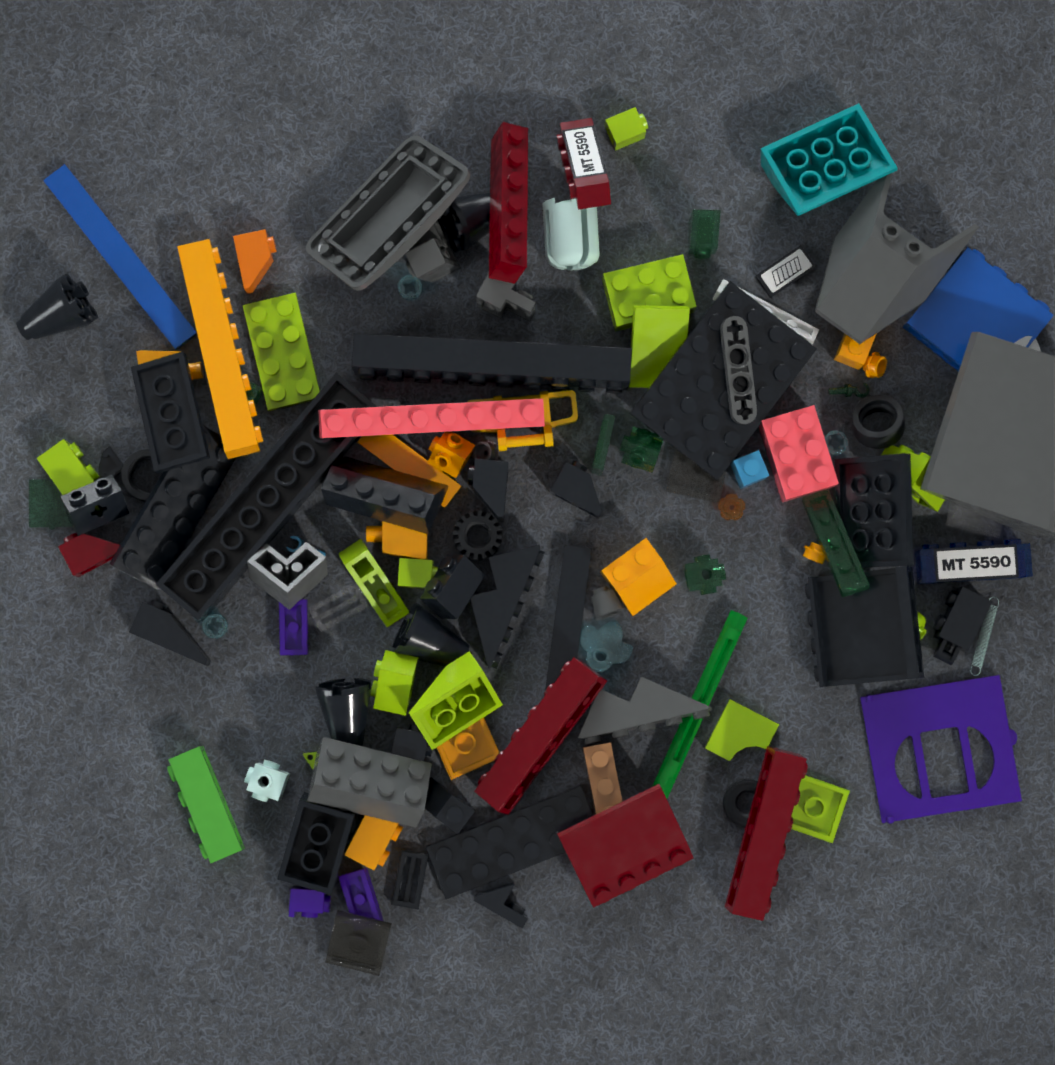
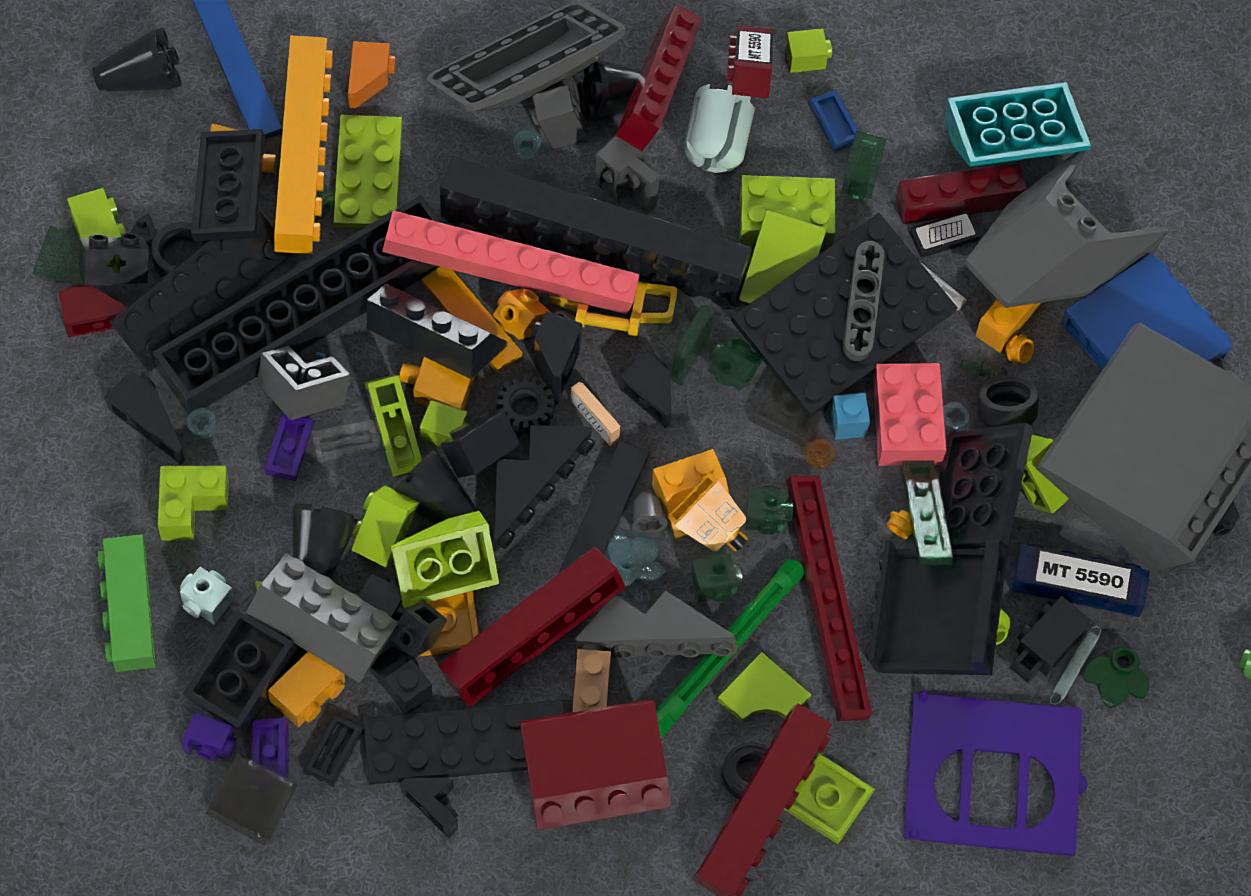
camera: 15 degrees right, 20 degrees down
(218, 700) = (186, 491): none -> lime brick
(449, 767) = (418, 629): none -> black brick
(538, 526) = (595, 413): none -> light nougat tile
(658, 597) = (710, 516): none -> light orange torso
(666, 188) = (834, 120): none -> blue tile
(667, 651) = (715, 577): none -> clear green brick
(772, 636) = (828, 599): none -> dark red plate
(790, 233) = (959, 191): none -> dark red brick
(1021, 641) = (1116, 681): none -> dark green plate

